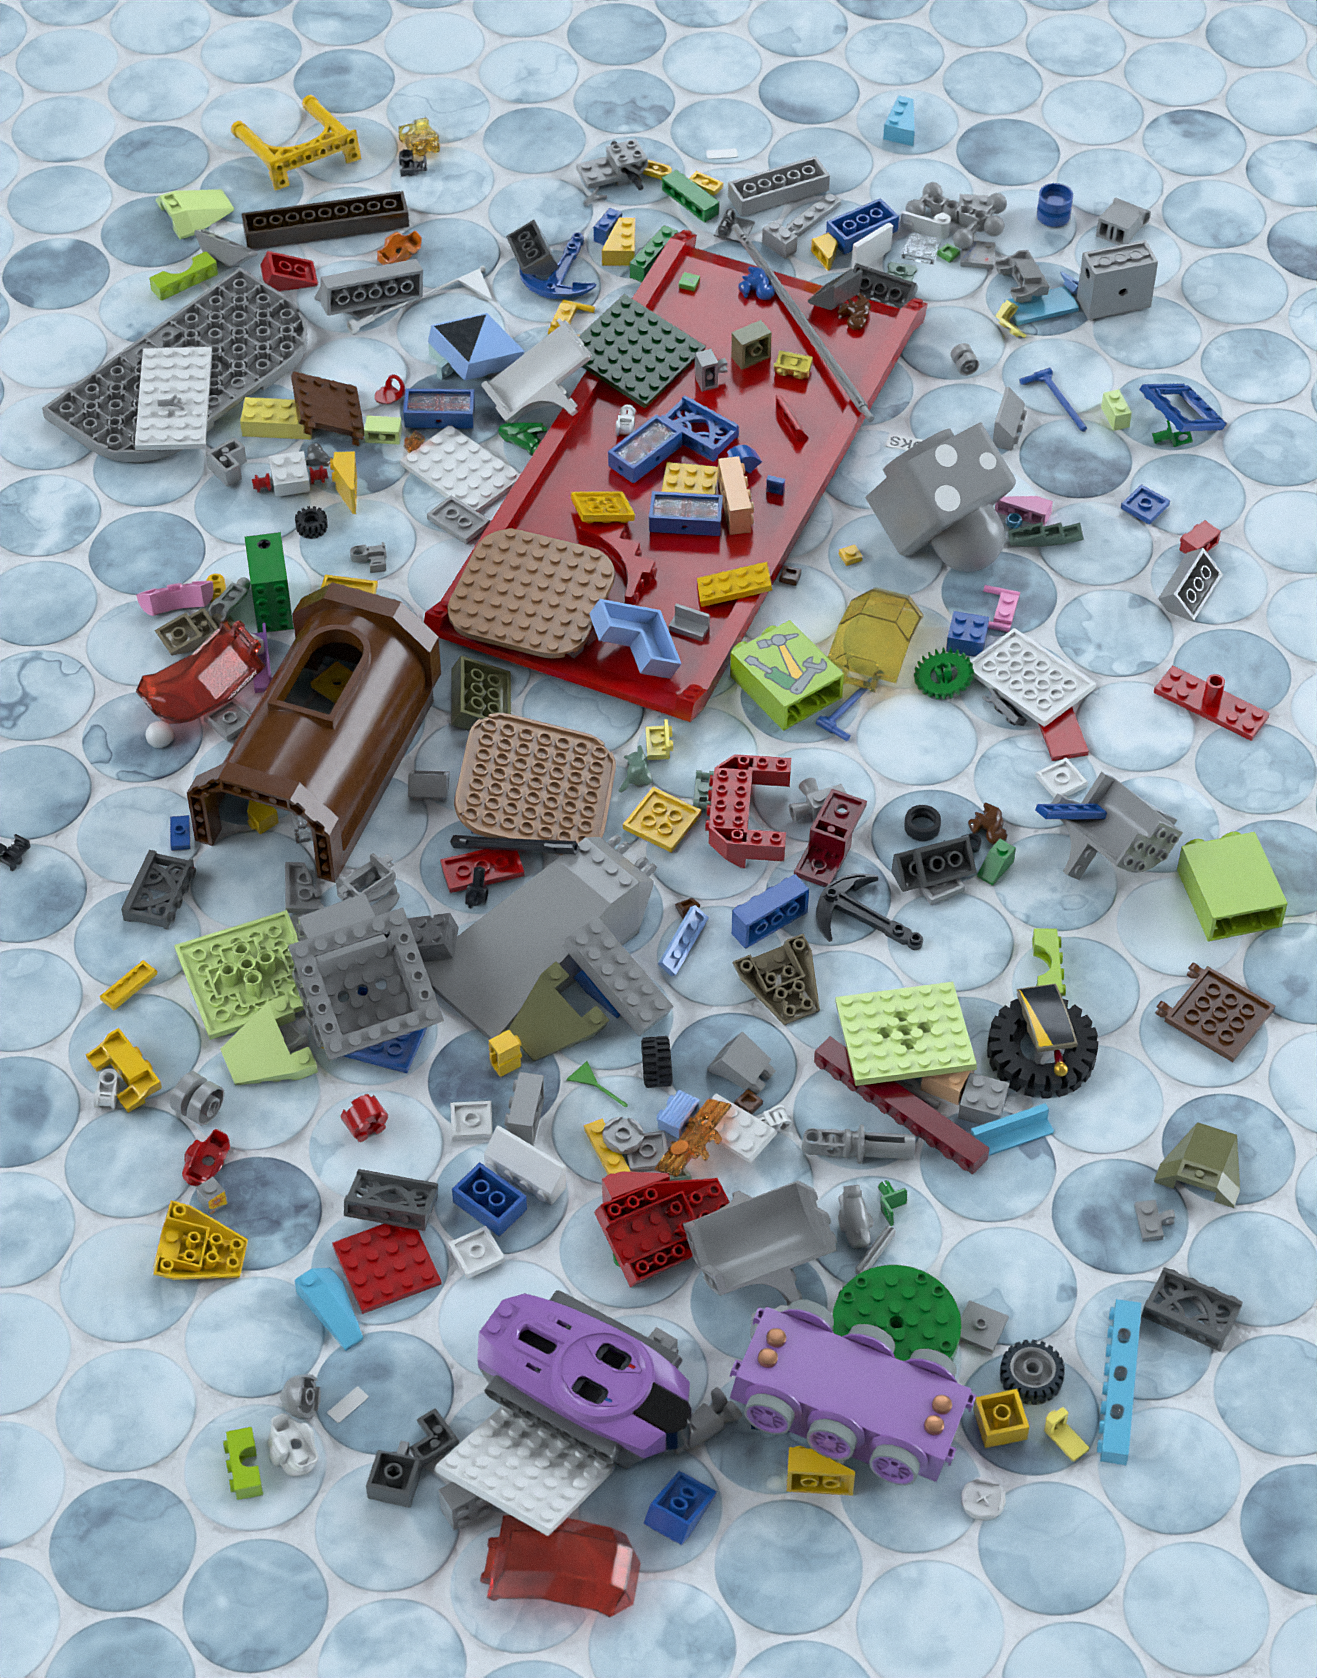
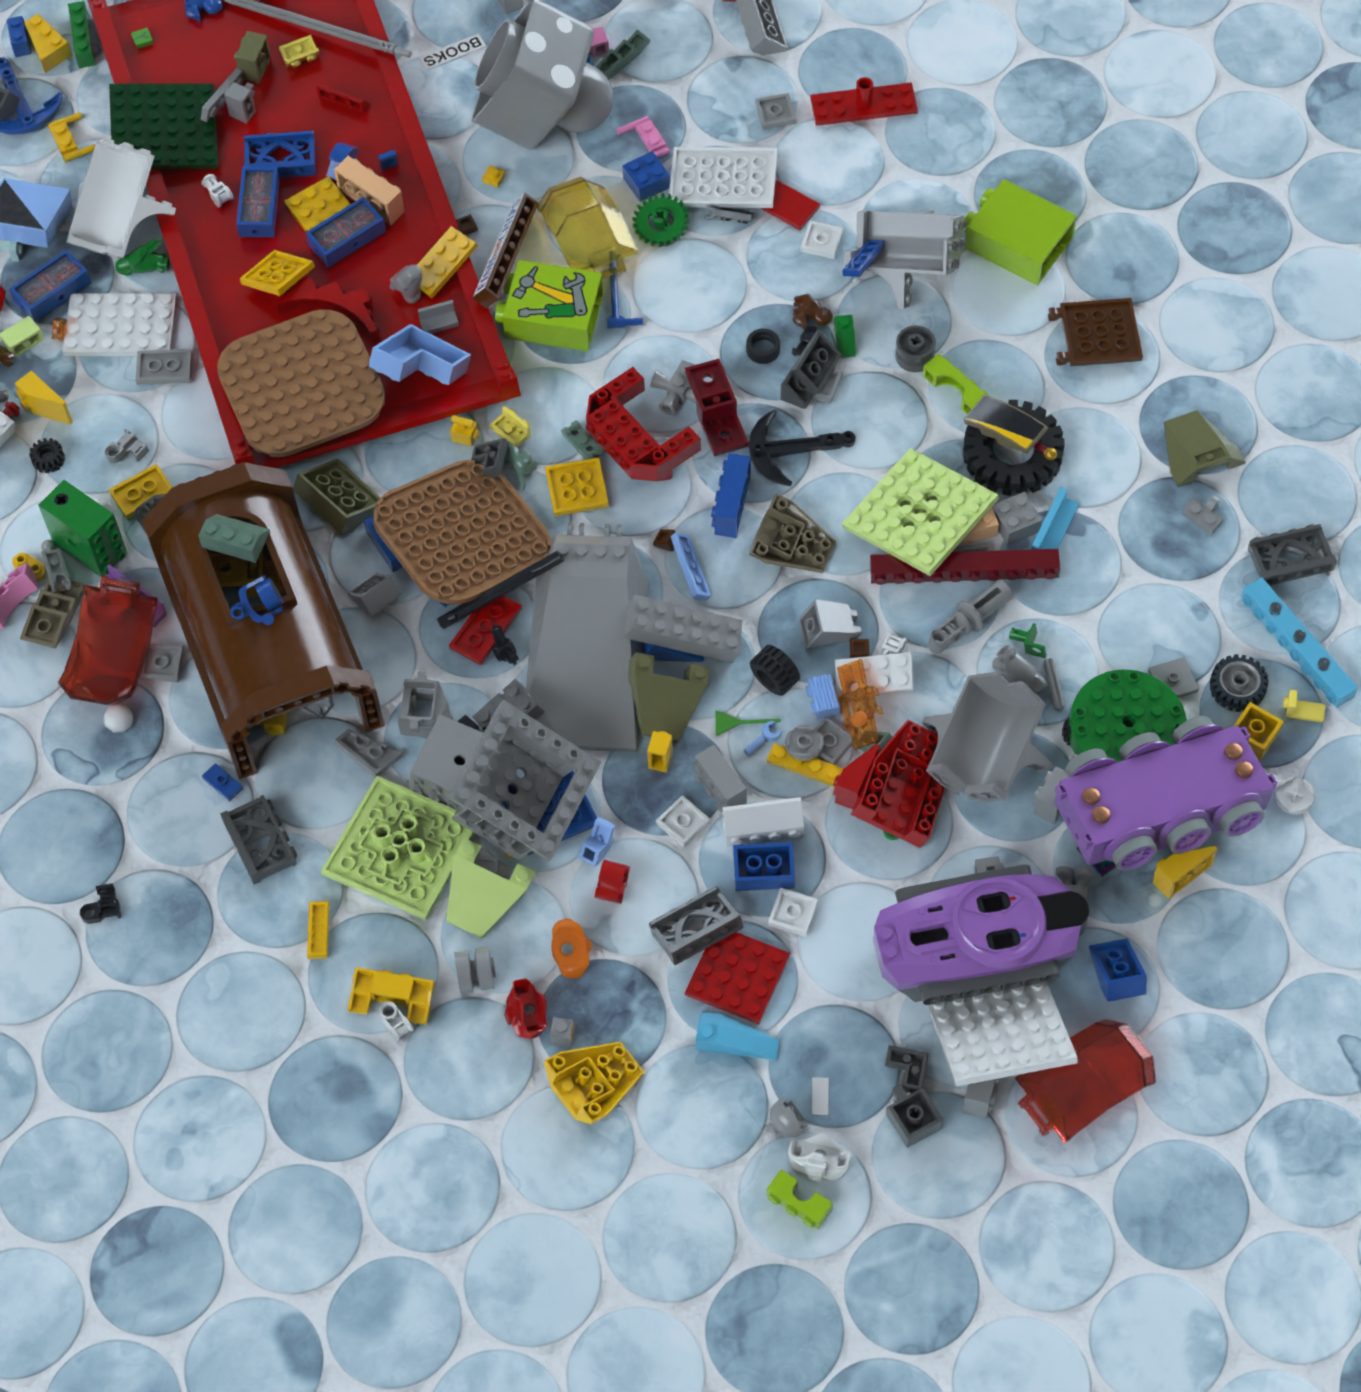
camera: 40 degrees left, 10 degrees up
(272, 1153) = (570, 932): none -> orange piece
(310, 701) = (268, 594): none -> blue piece
(334, 645) = (233, 537): none -> sand green slope
(387, 1085) = (599, 842): none -> light blue brick
(605, 1109) = (767, 735): none -> light blue piece
(617, 748) = (492, 456): none -> dark grey brick
(621, 717) = (464, 431): none -> yellow brick
(687, 356) = (218, 99): none -> light grey plate
(689, 580) = (408, 282): none -> light grey animal
(791, 608) = (505, 250): none -> reddish brown brick
(1043, 909) = (914, 348): none -> dark grey wheel
(1129, 658) = (775, 111): none -> light grey plate

